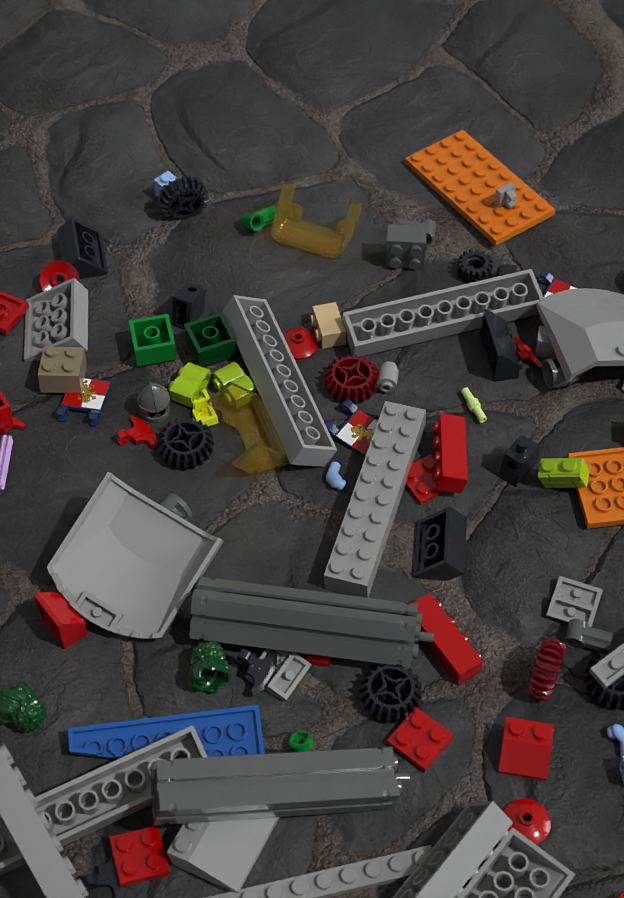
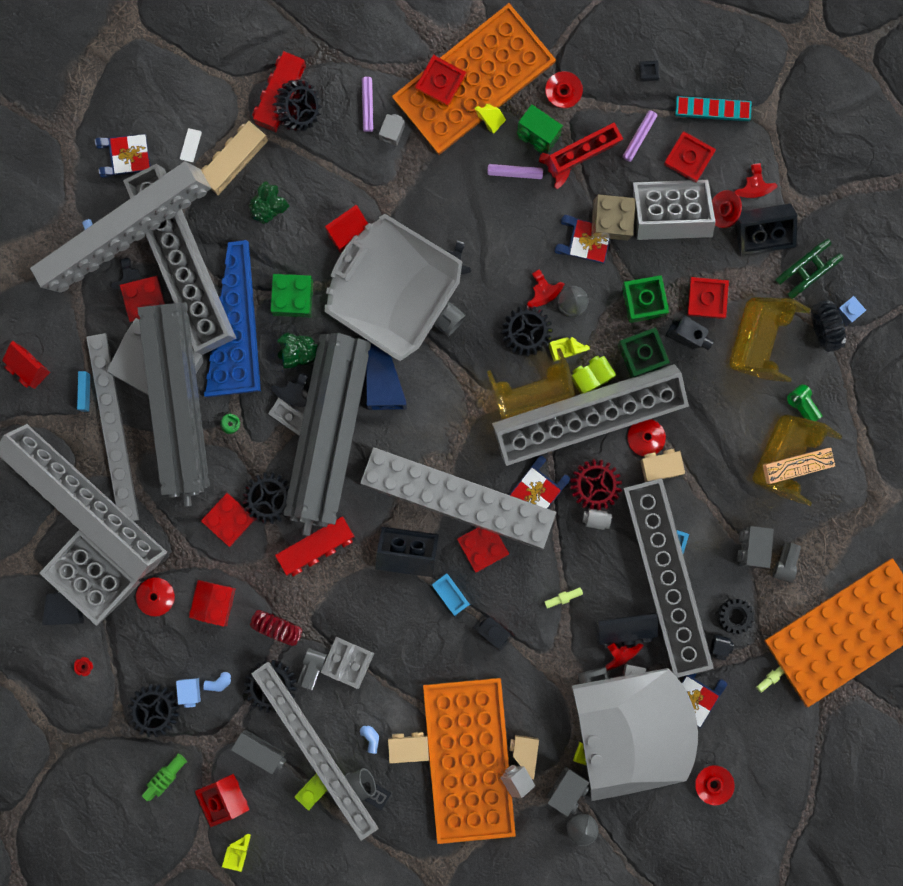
camera: 90 degrees right, 30 degrees up
(34, 262) = (755, 185): none -> red piece
(124, 226) = (809, 279): none -> dark green piece
(140, 676) = (292, 295): none -> green brick
(151, 294) = (707, 298): none -> red plate
(174, 255) = (758, 335): none -> clear yellow windscreen
(189, 384) = (594, 335): lime brick -> none
(250, 564) = (383, 384): none -> dark blue slope
(322, 219) = (798, 465): none -> light nougat tile
(334, 478) = (486, 462): light blue arm -> none
(450, 453) = (502, 569): red brick -> none
(483, 506) = (450, 594): none -> dark azure tile
(506, 195) = (819, 656): light grey tile -> none
(531, 240) = (772, 678): none -> yellowish green bar
(563, 472) = (473, 669): lime brick -> none

